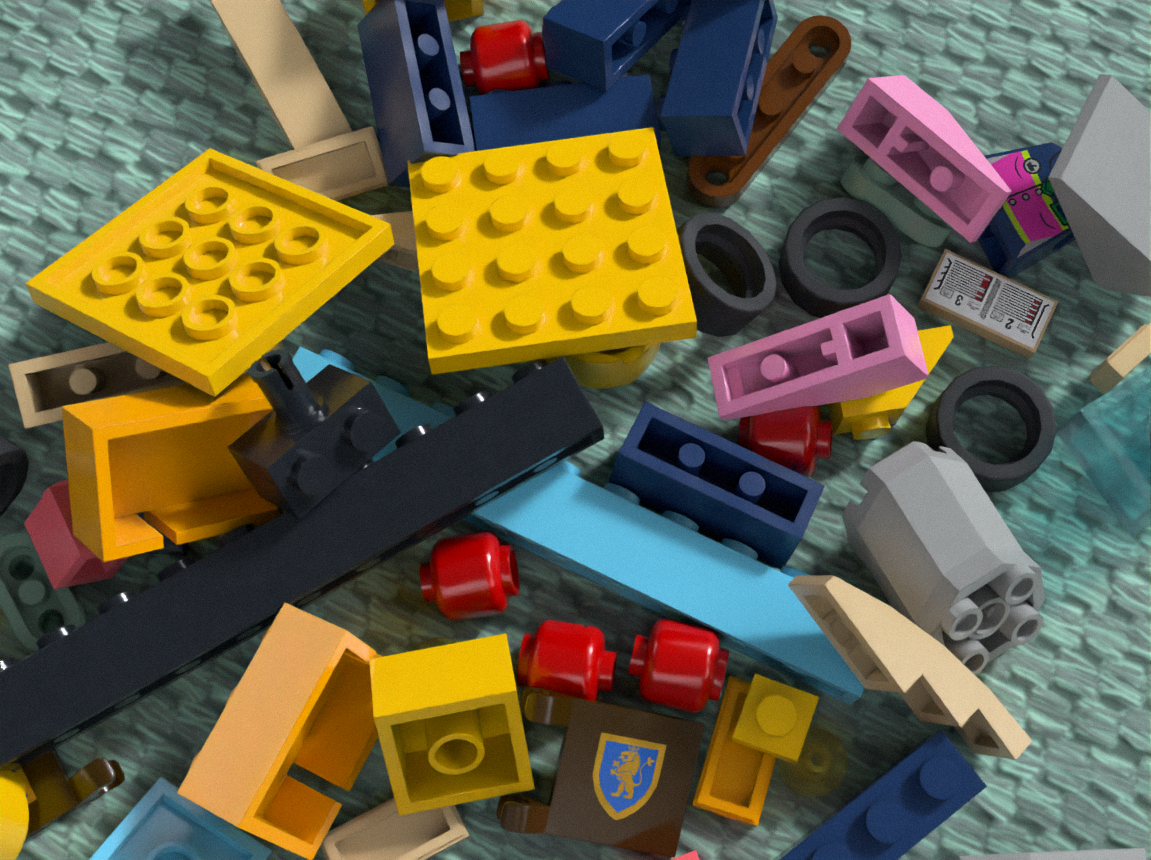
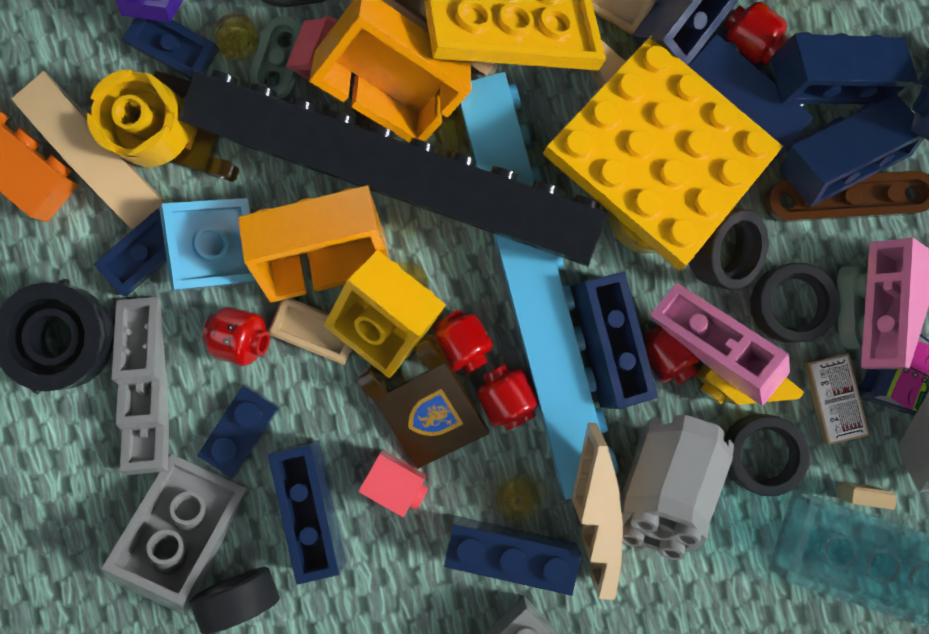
camera: 55 degrees right, 15 degrees up
(312, 435) = (460, 121): black brick -> none
(470, 576) = (465, 259): red head -> none
(732, 774) = (494, 460): light orange tile -> none
(775, 719) = (521, 465): yellow plate -> none

